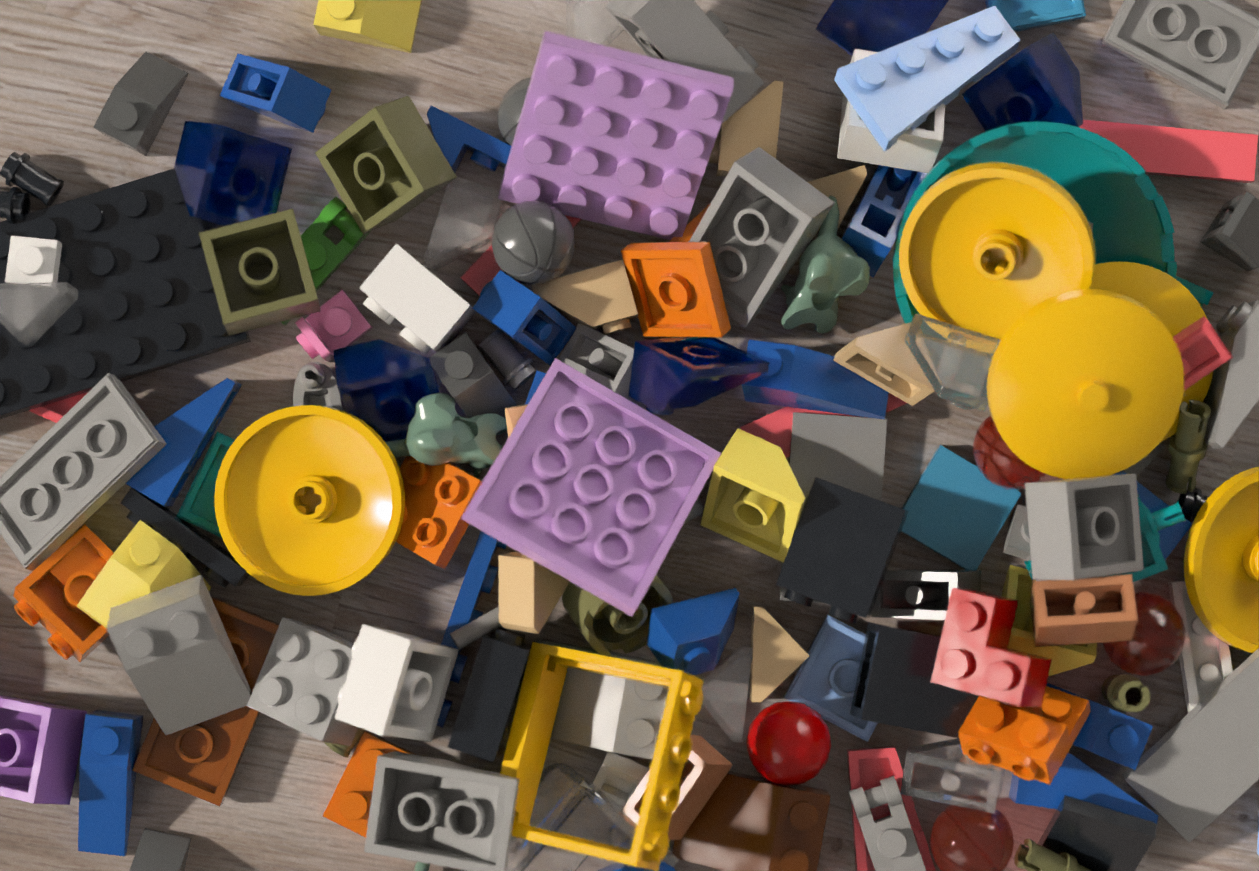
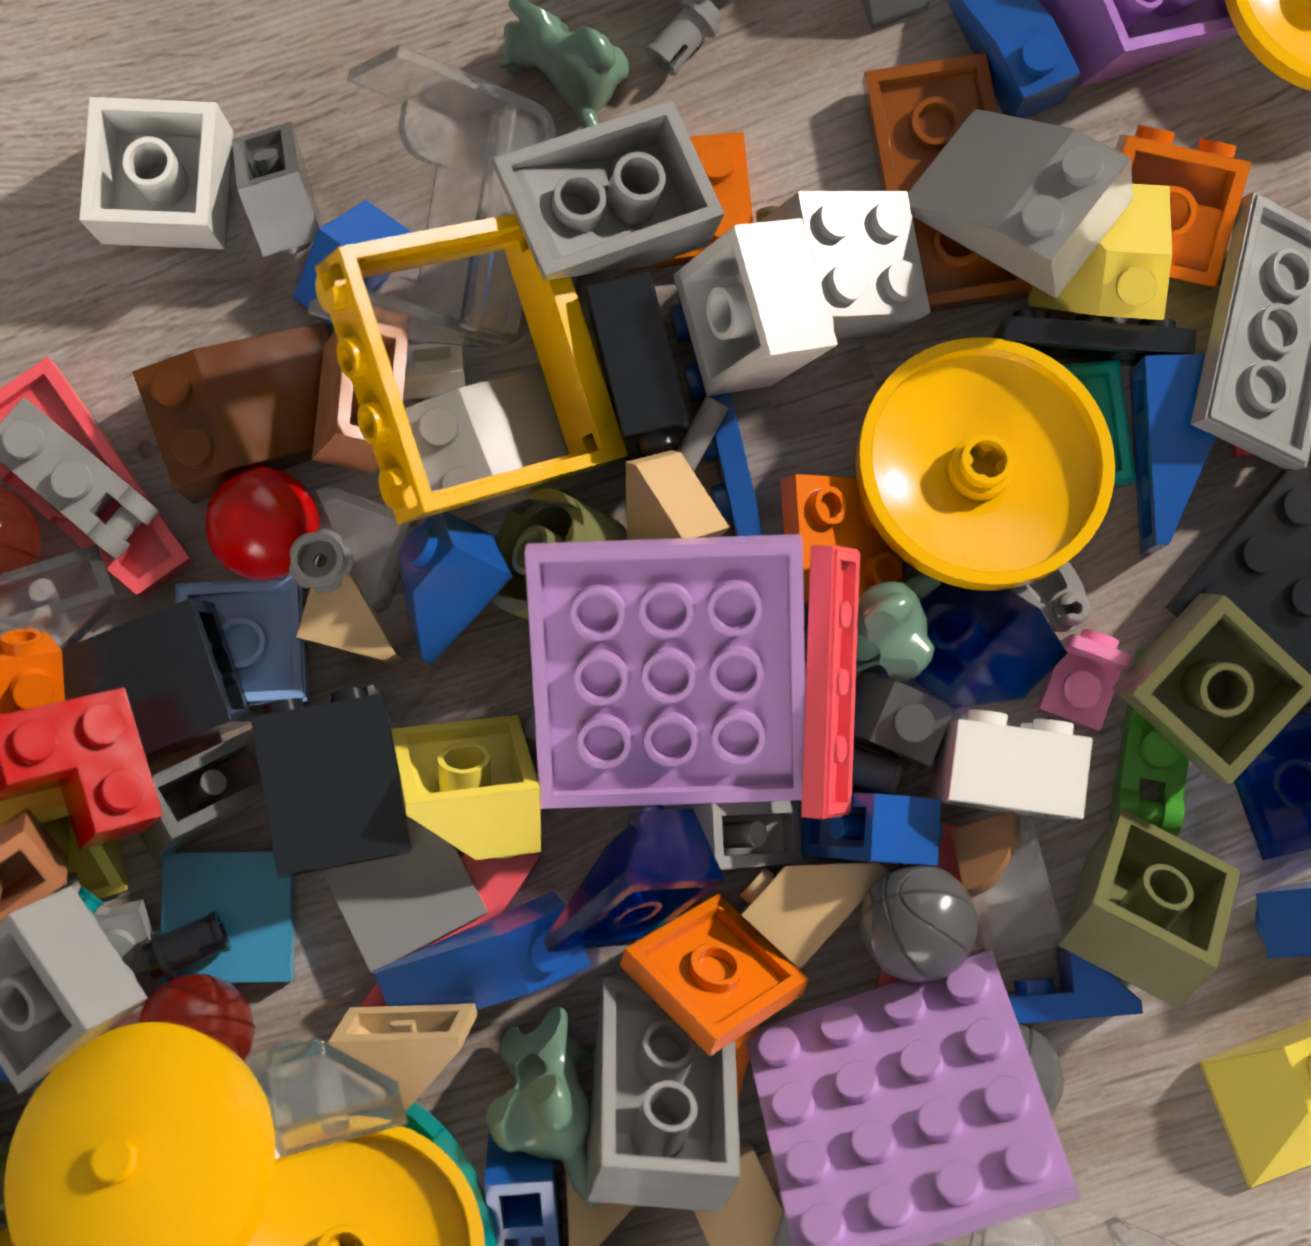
camera: 150 degrees right, 5 degrees down
(464, 260) = (986, 850): none -> medium nougat tile
(496, 420) = (830, 681): none -> coral tile
(765, 680) = (308, 548): none -> light grey plate
(991, 505) = (184, 946): none -> black pin

